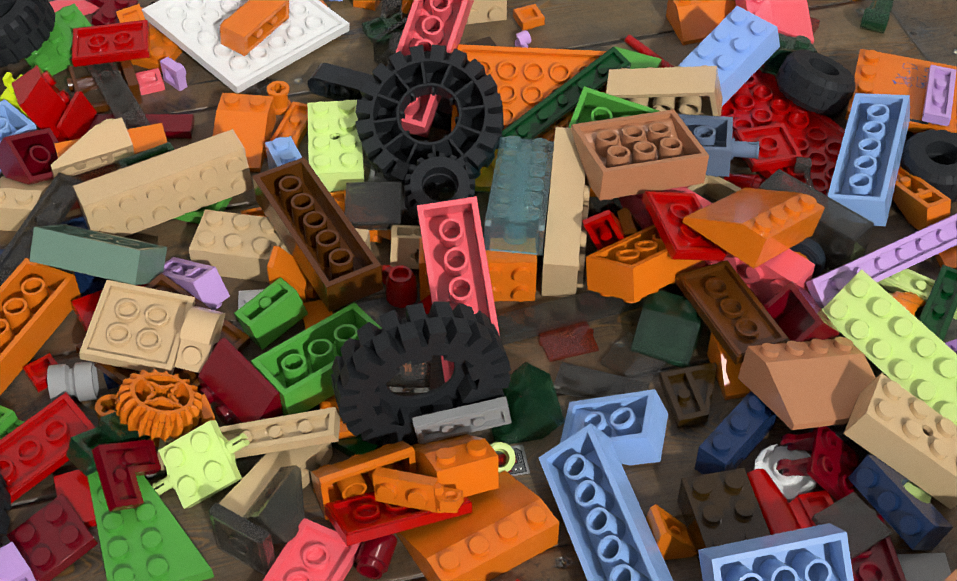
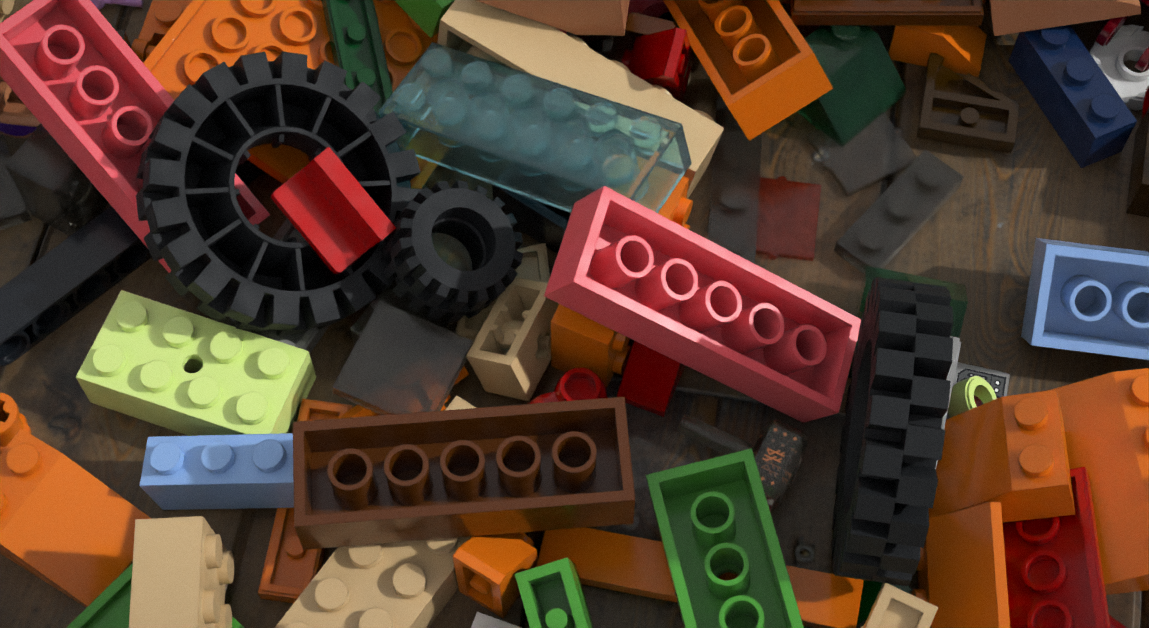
camera: 65 degrees left, 15 degrees up
(293, 124) = (87, 435): orange tile -> none
(415, 491) = (1065, 529): orange hinge -> none
(425, 132) = (332, 211): none -> red panel
(631, 420) = (992, 227): light blue slope -> none

